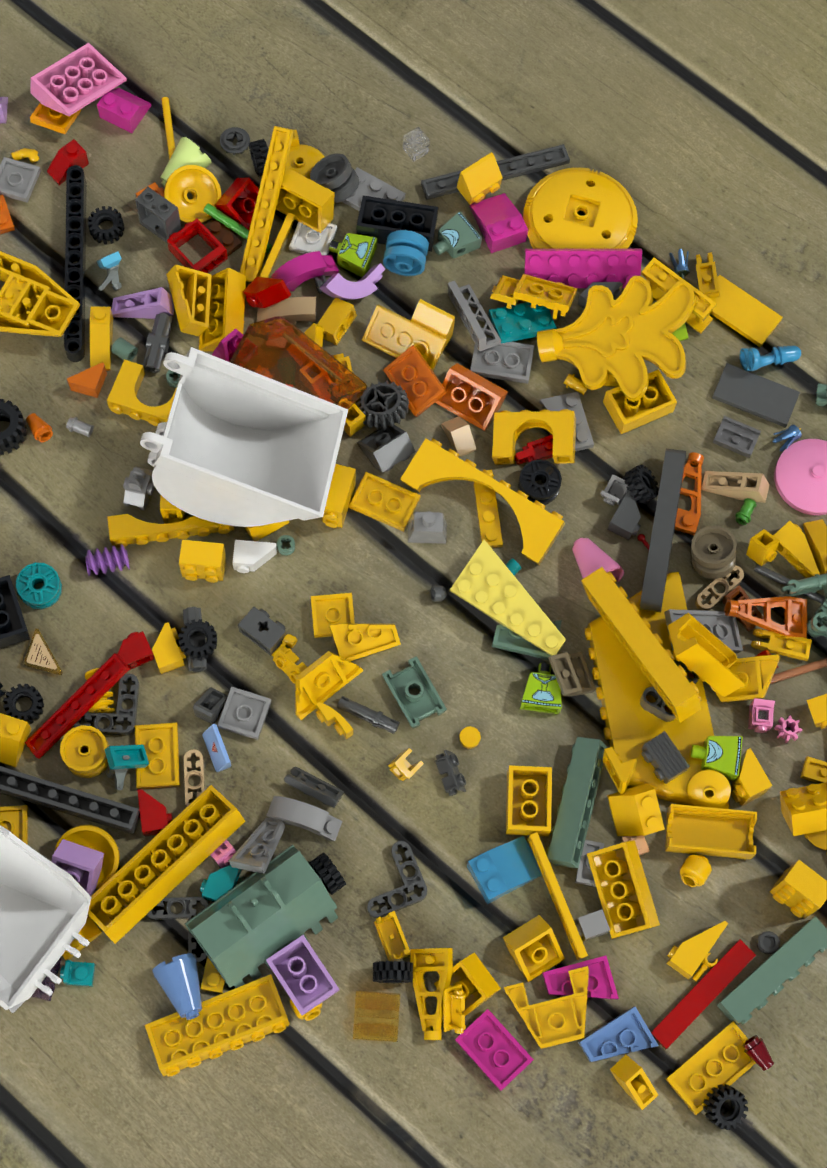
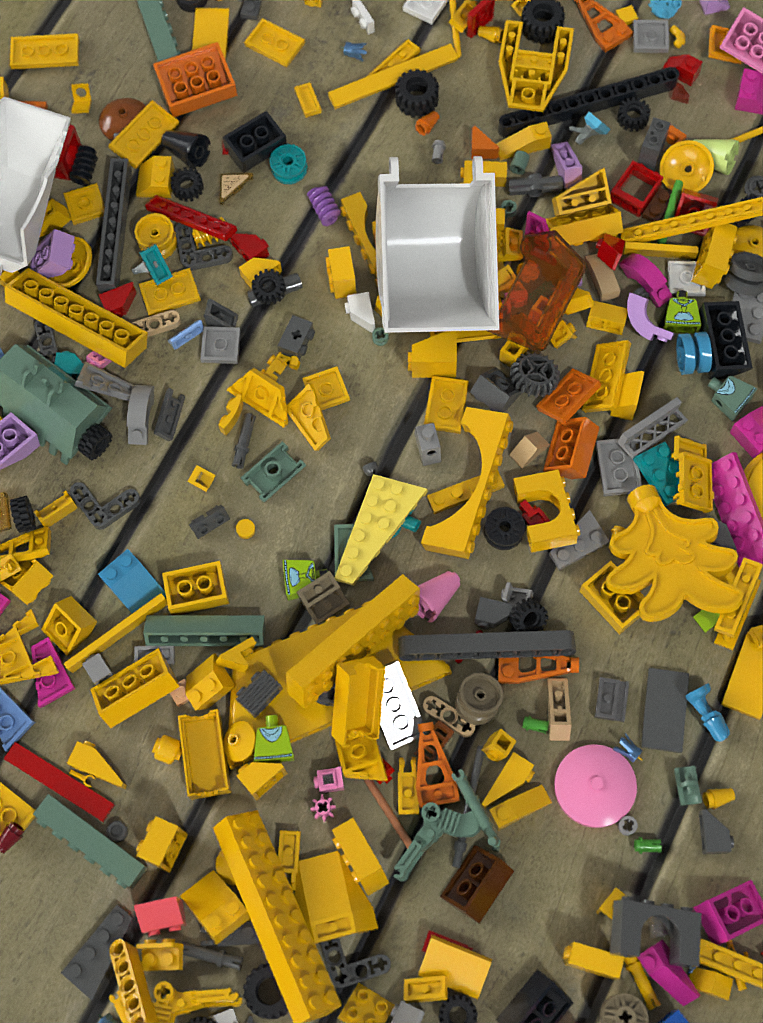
camera: 85 degrees right, 0 degrees up
(96, 176) = (680, 94): none -> clear red tile

